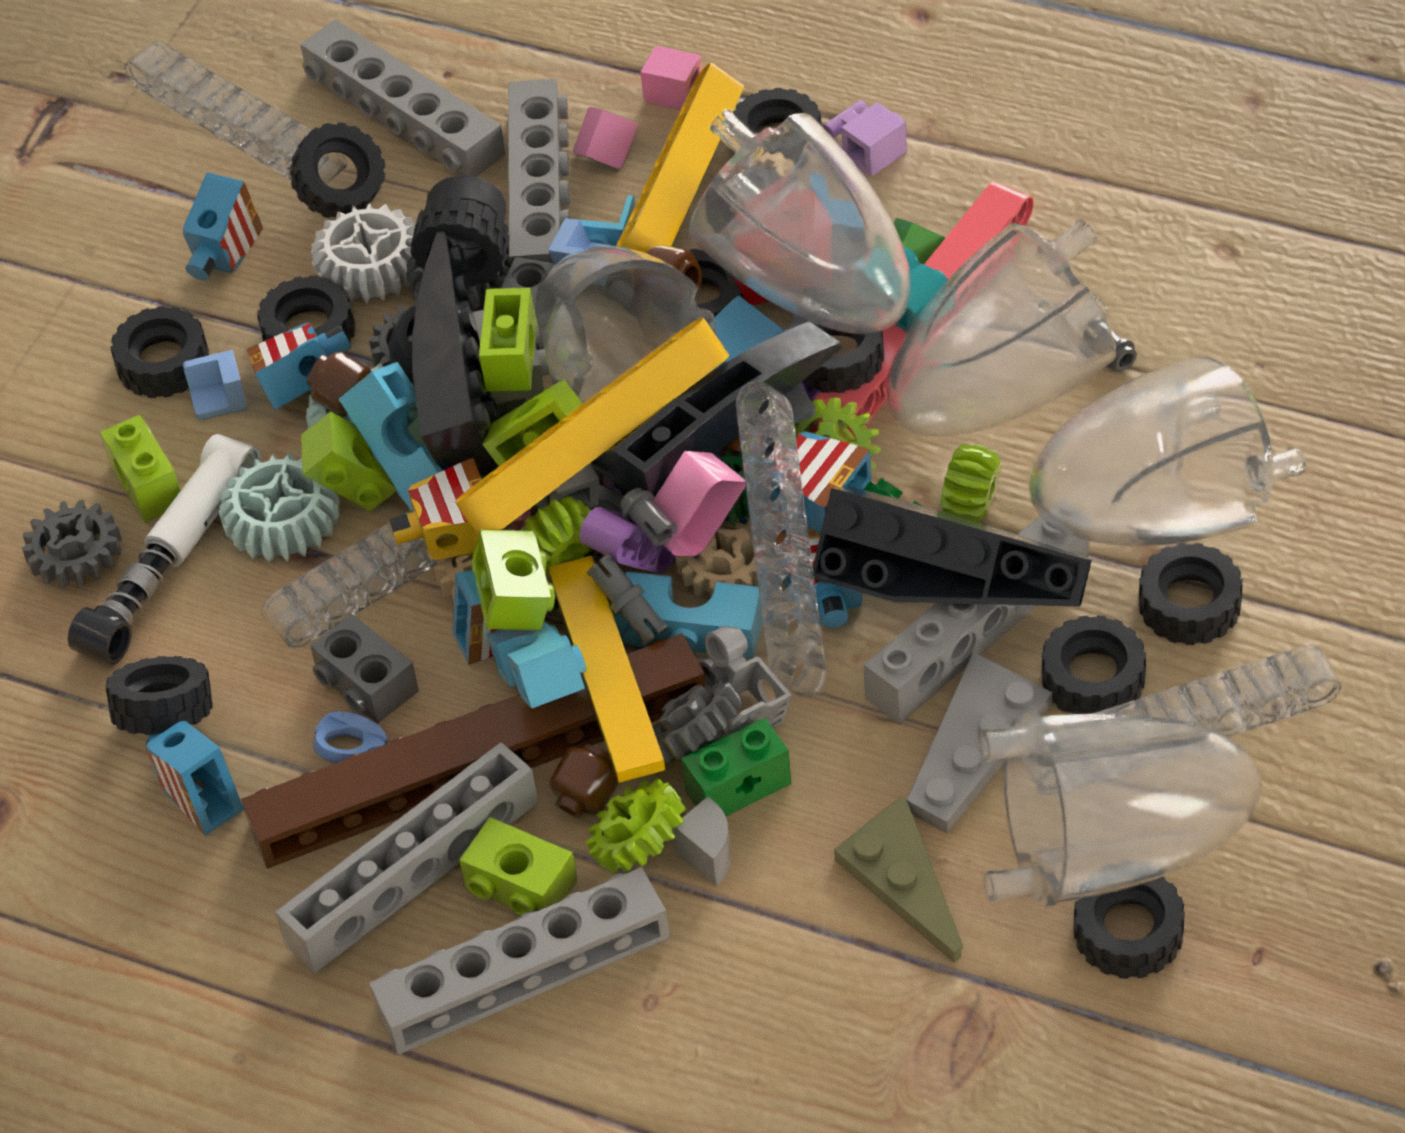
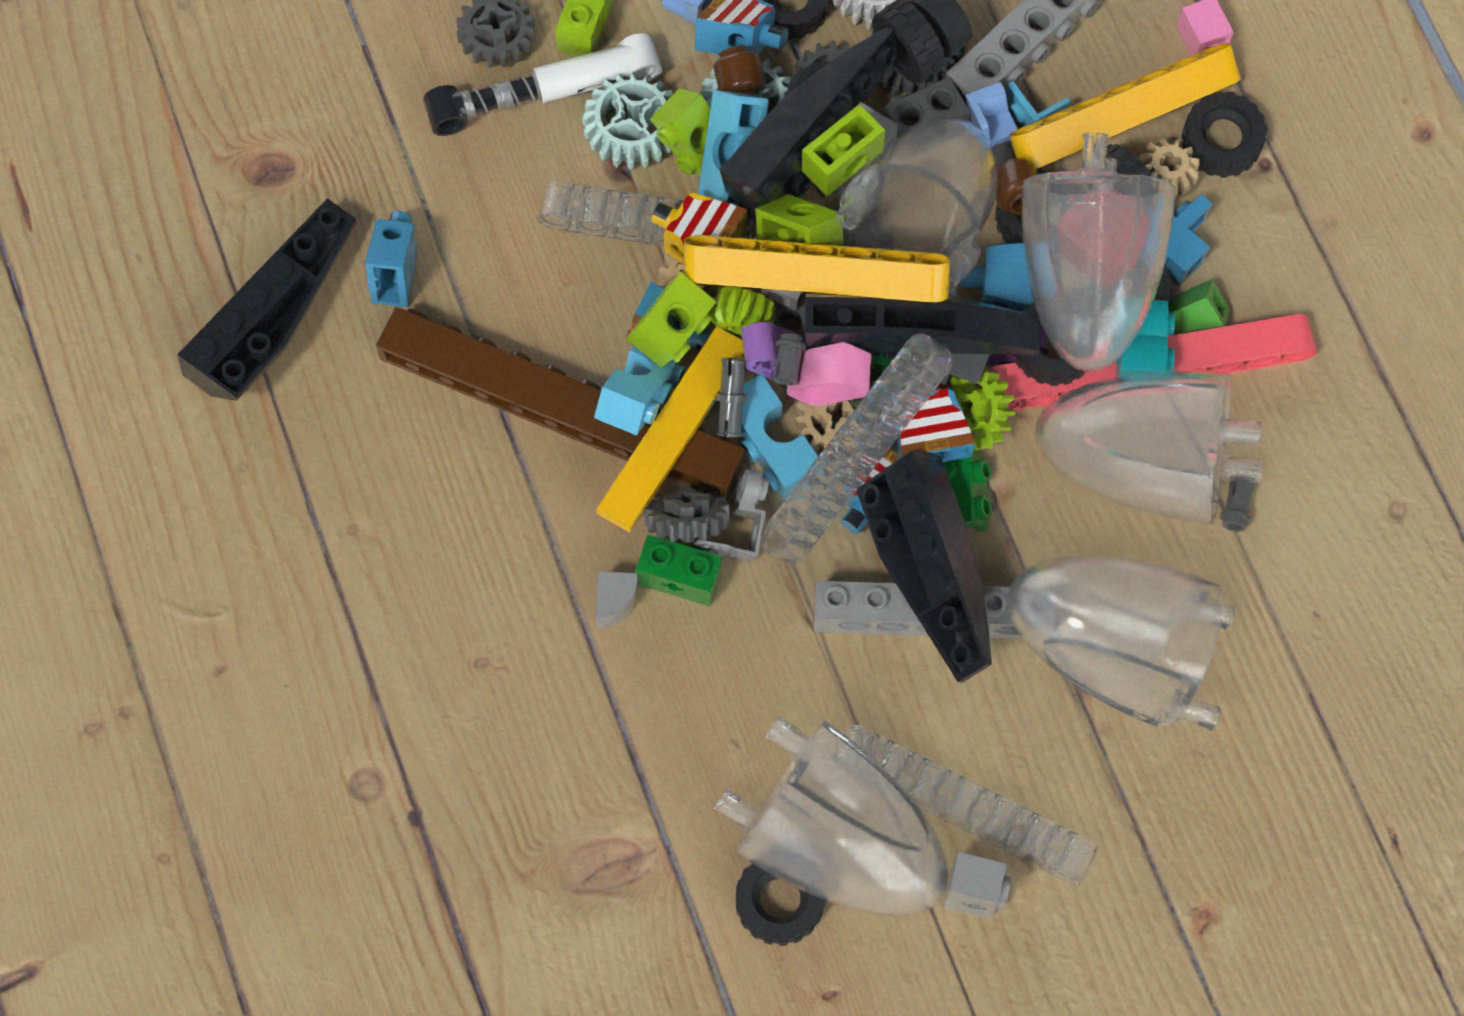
camera: 40 degrees right, 20 degrees up
(122, 913) = (266, 309): none -> black wedge
(158, 694) = (422, 209): black tyre -> none
(346, 724) = (509, 305): medium blue piece -> none
(363, 669) = (562, 283): dark grey brick -> none
(404, 858) = (444, 437): light grey brick -> none
(502, 850) = (497, 485): lime brick -> none
(506, 981) = (352, 517): light grey brick -> none
(584, 780) = (589, 485): reddish brown head -> none
(605, 137) = (1112, 34): bright pink panel -> none
(635, 825) = (582, 548): lime gear -> none
(870, 135) = (1275, 200): lavender brick -> none
(895, 867) = (701, 718): olive wing -> none
(954, 764) = (843, 688): light grey wing -> none
(970, 482) = (1029, 518): lime gear -> none
(1093, 636) = (957, 746): black tyre -> none
(1183, 623) = (1066, 757): black tyre -> none
(1279, 746) = (977, 886): none -> light grey brick

